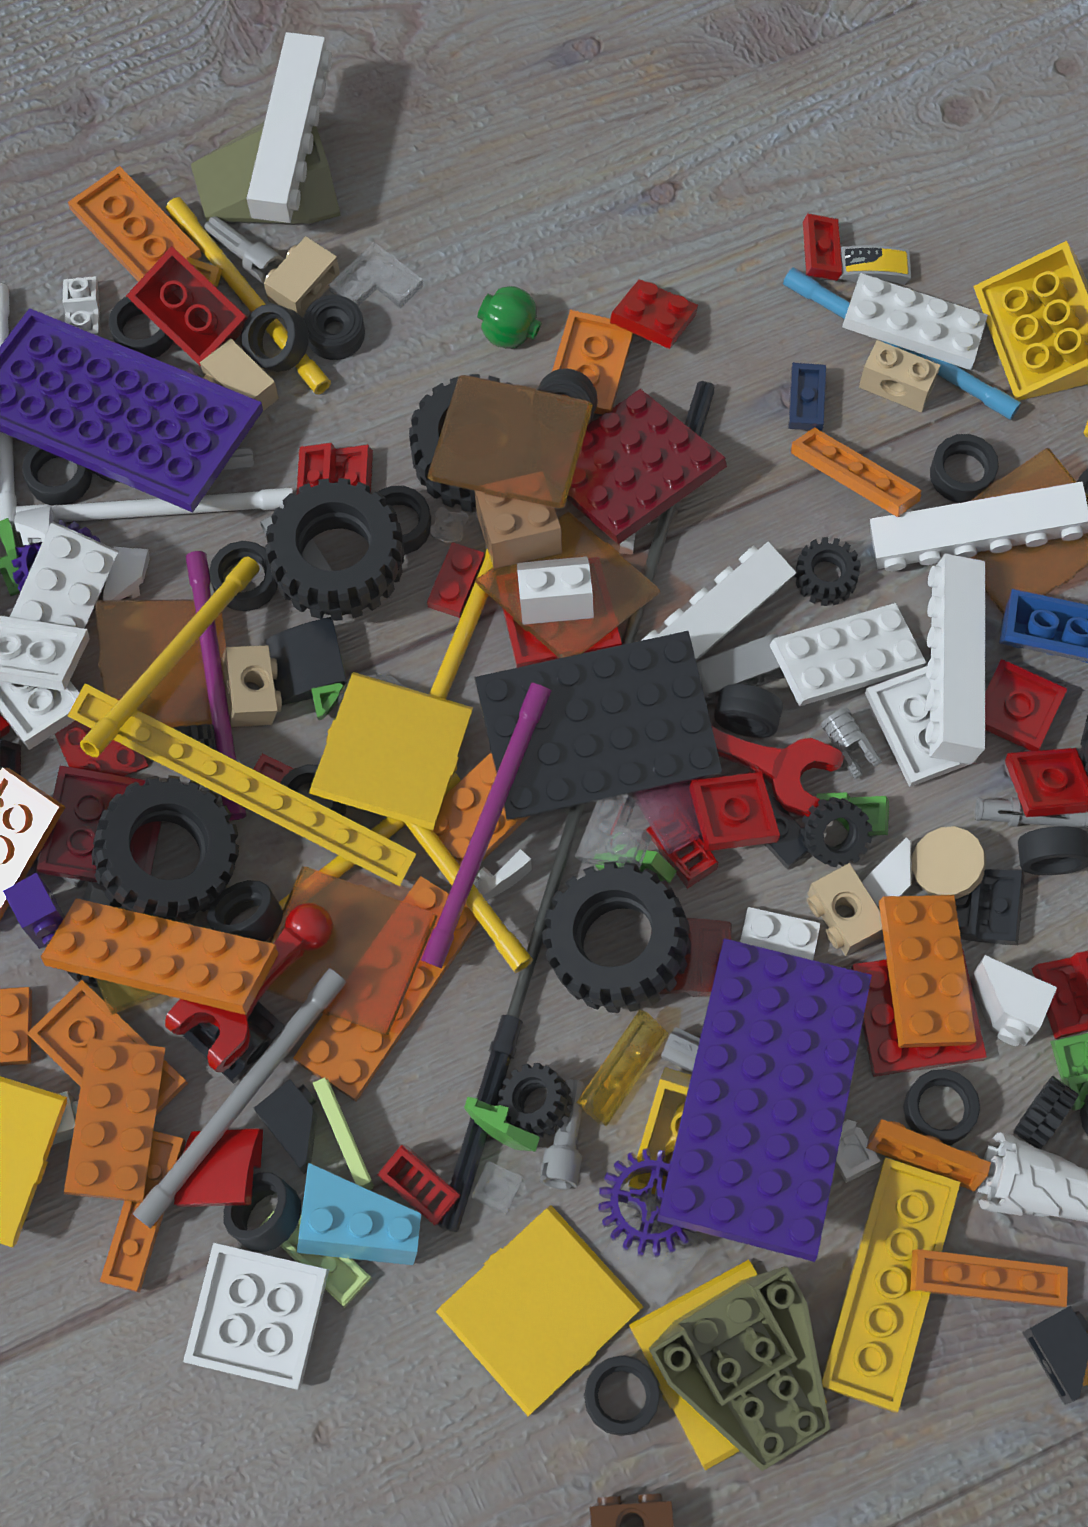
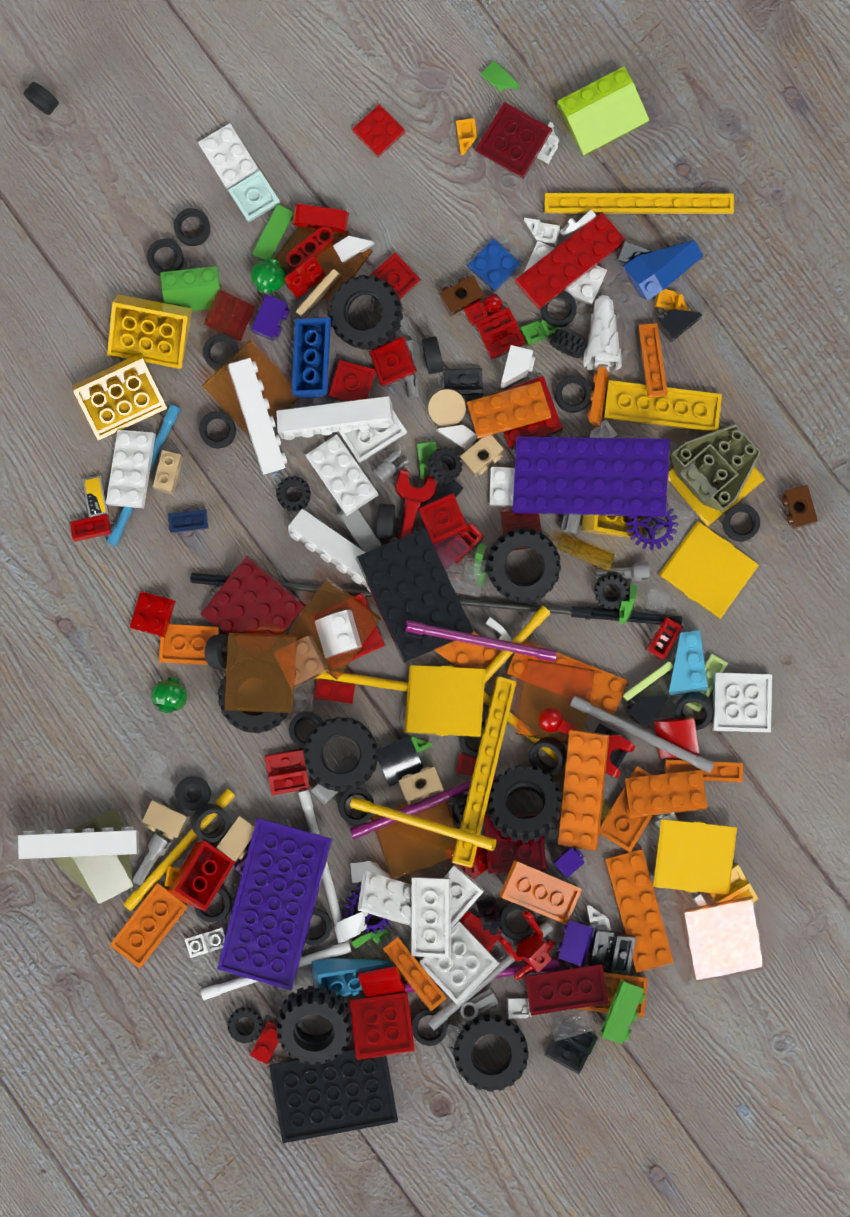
camera: 100 degrees left, 15 degrees up
(856, 472) = (234, 486): orange plate -> none

